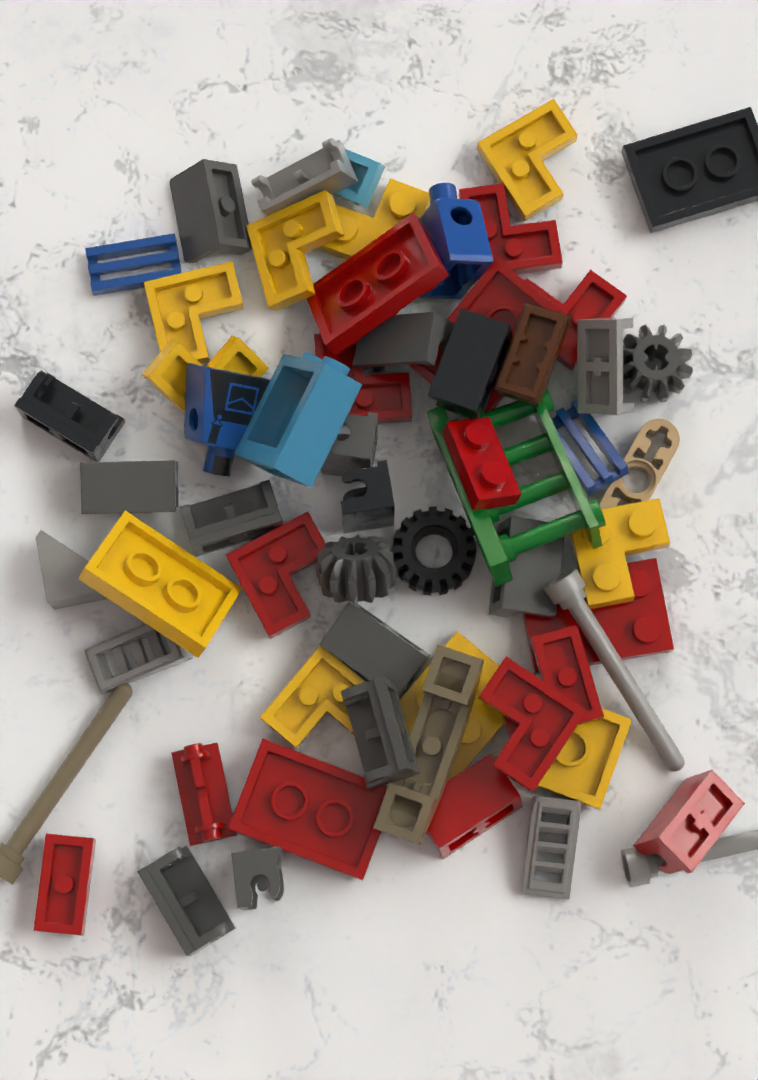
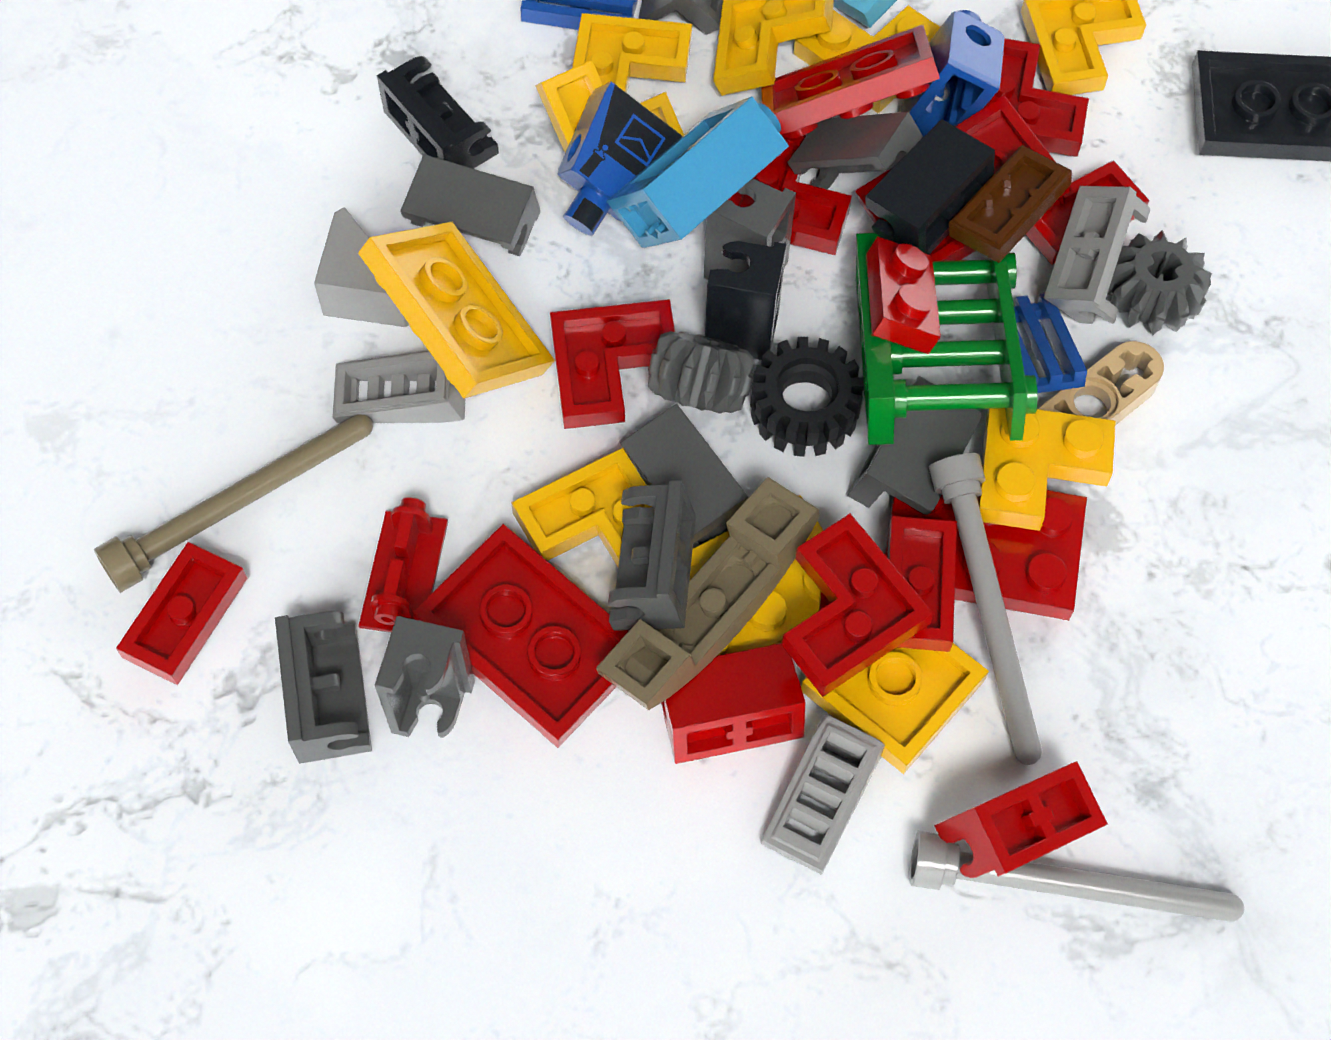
camera: 20 degrees right, 15 degrees down
(231, 518) = (571, 284): dark grey hinge -> none

